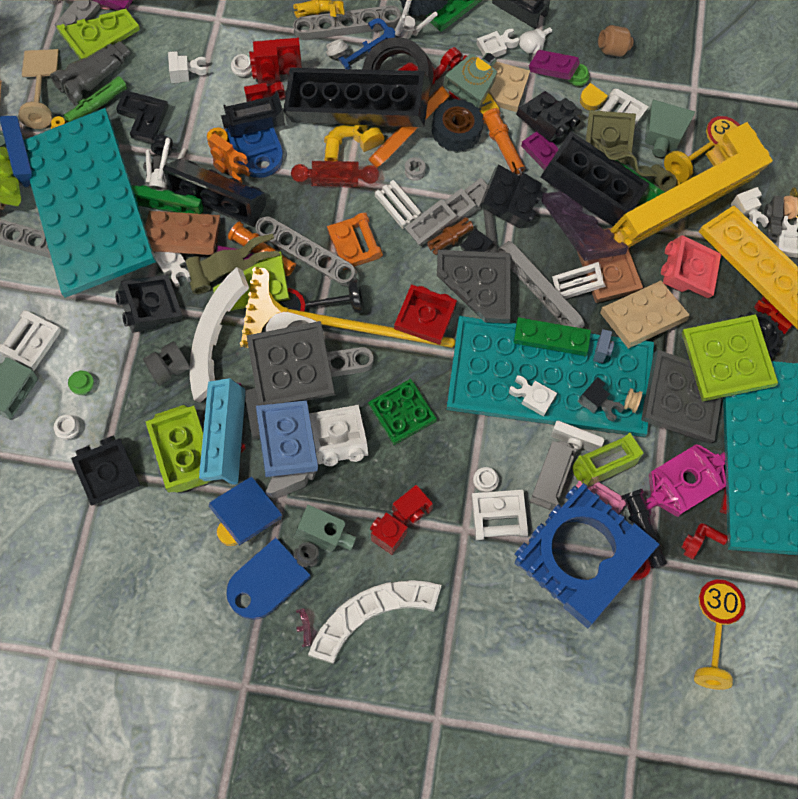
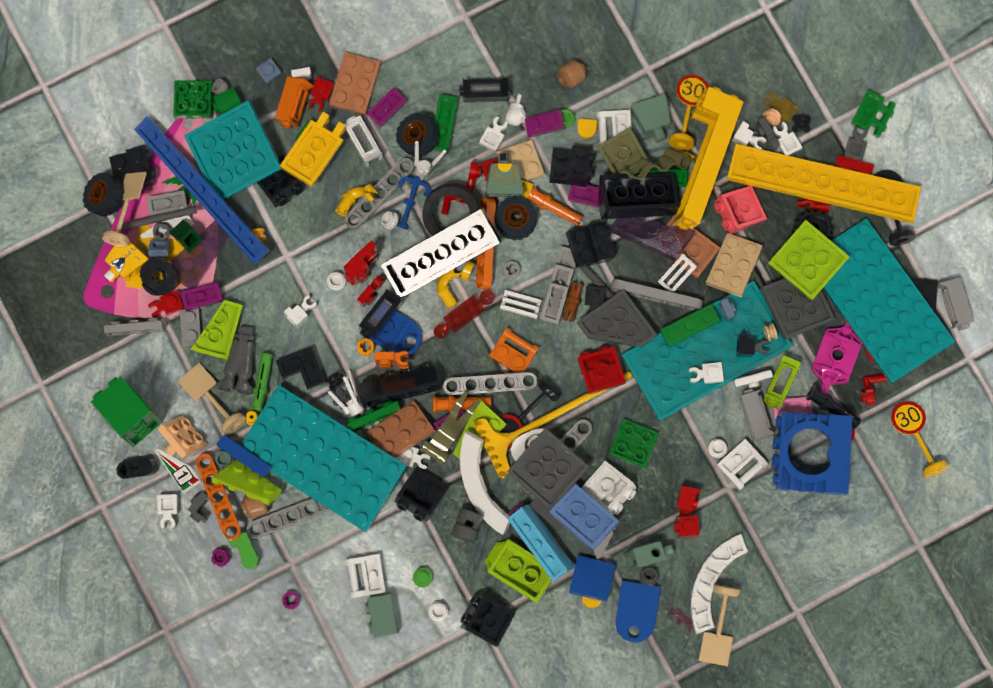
camera: 35 degrees left, 10 degrees up
(318, 686) = (717, 647): none -> tan piece

